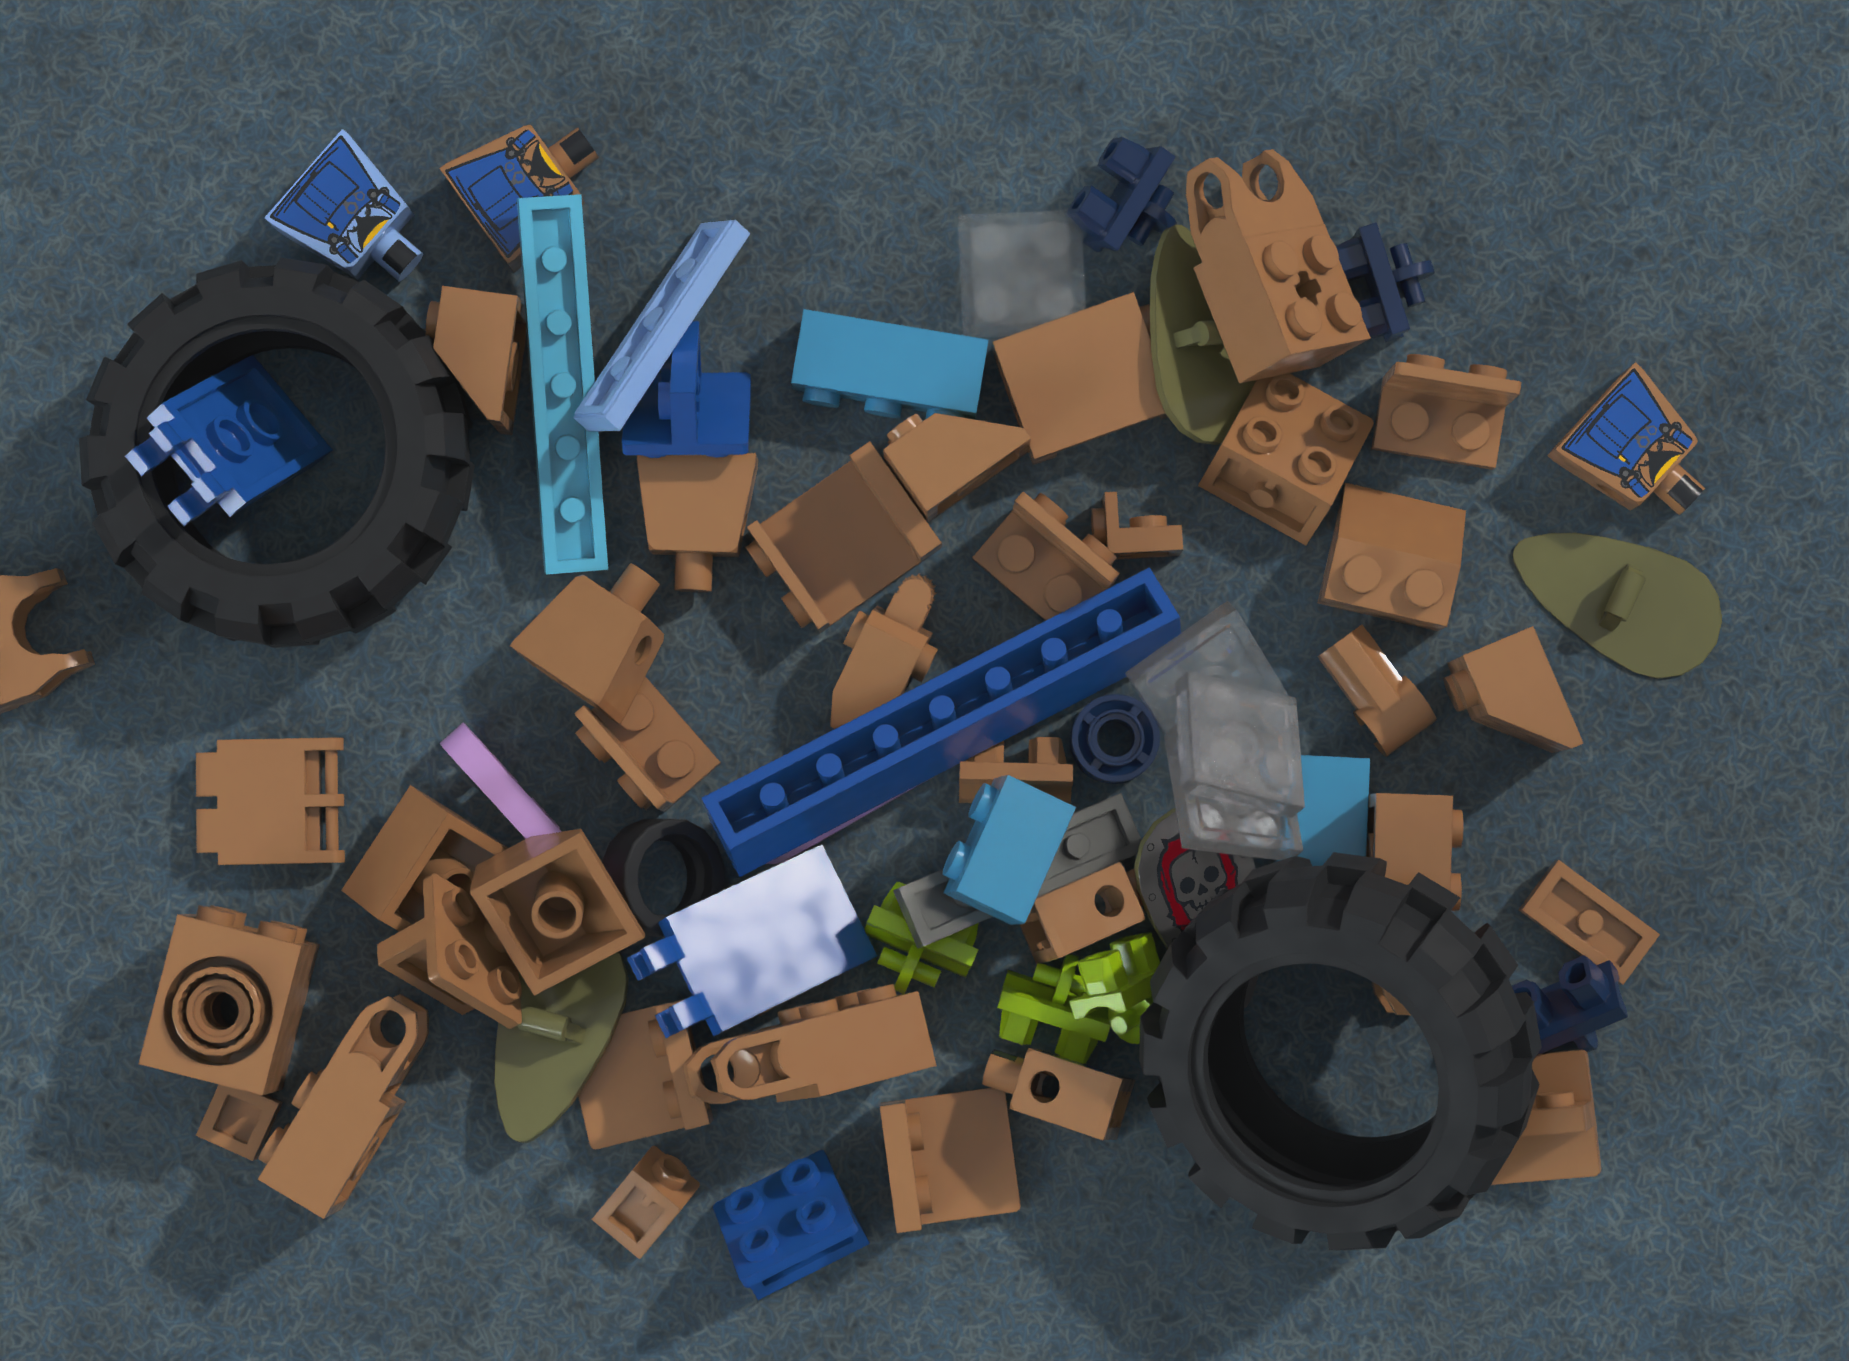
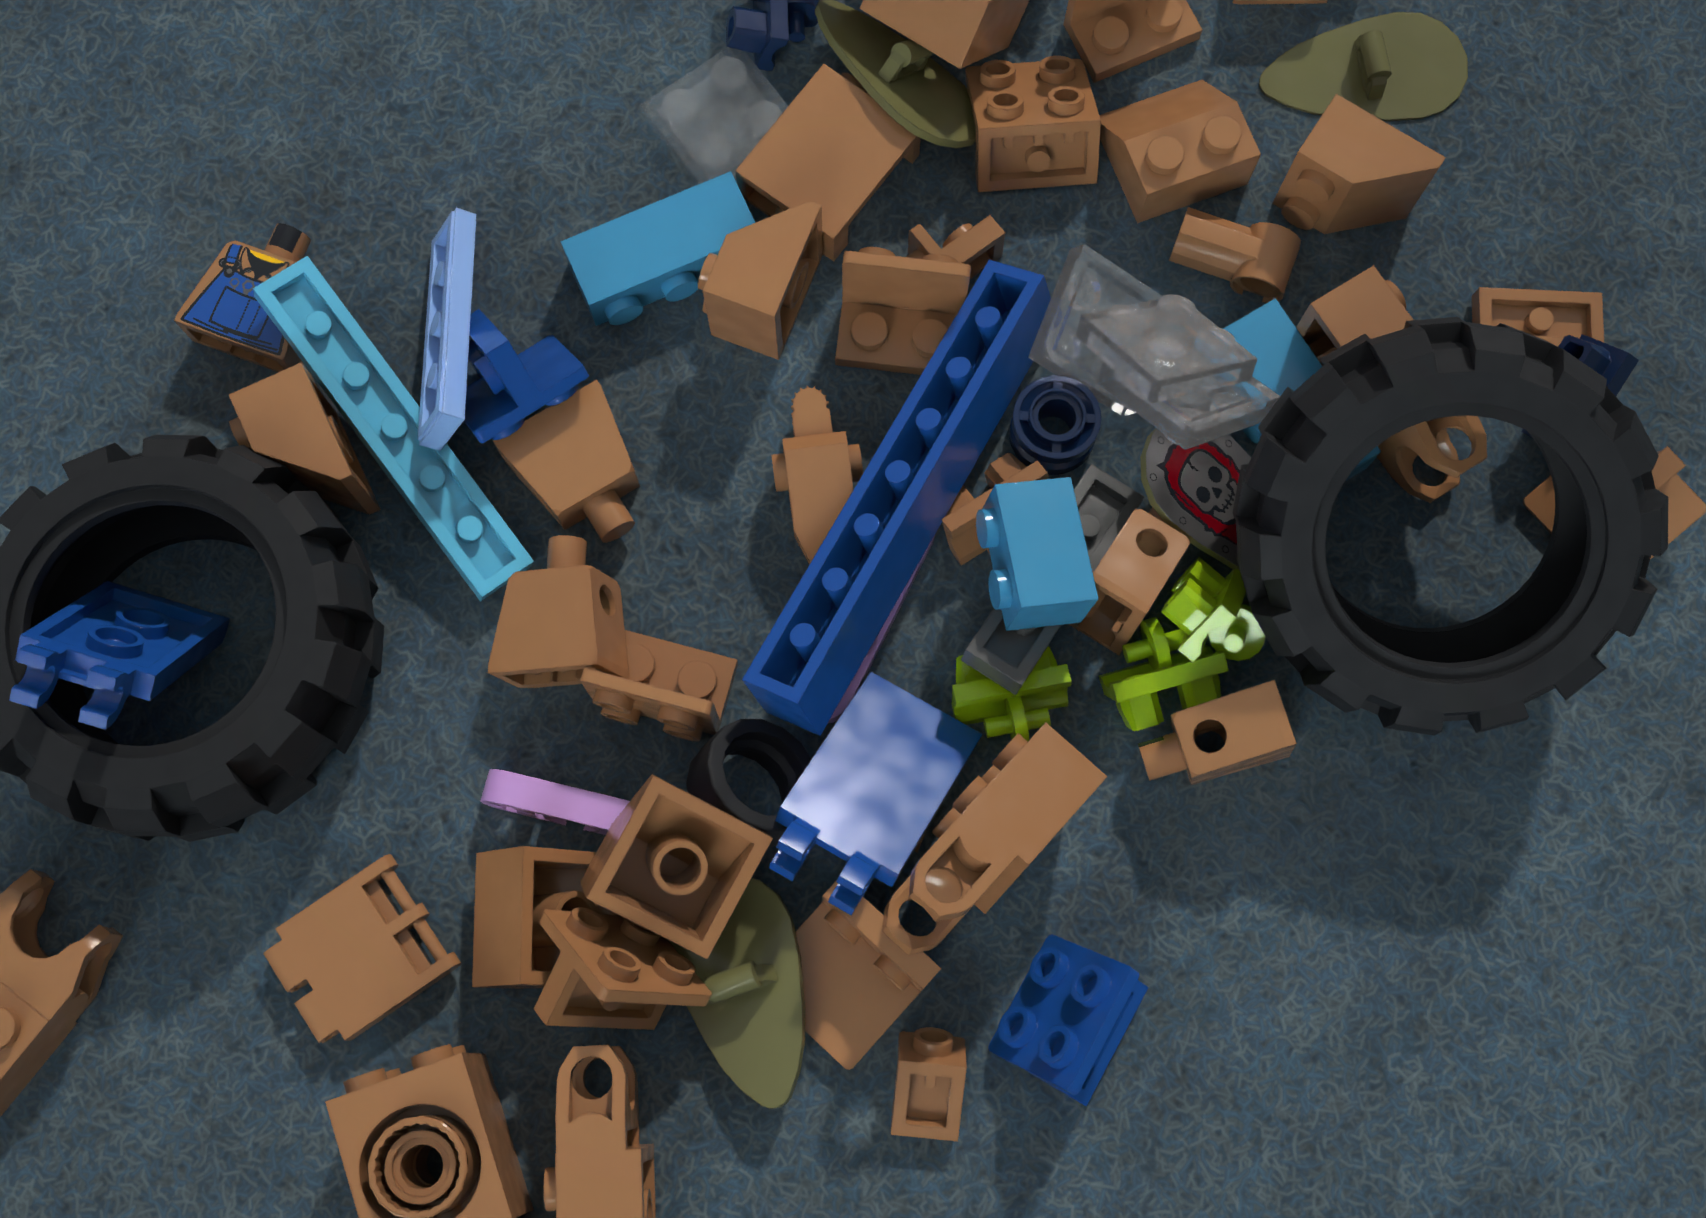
camera: 35 degrees left, 10 degrees down
(347, 213) = (117, 401): torso -> none
(843, 540) = (719, 410): medium nougat panel -> none
(949, 1157) = (1164, 865): medium nougat bracket -> none

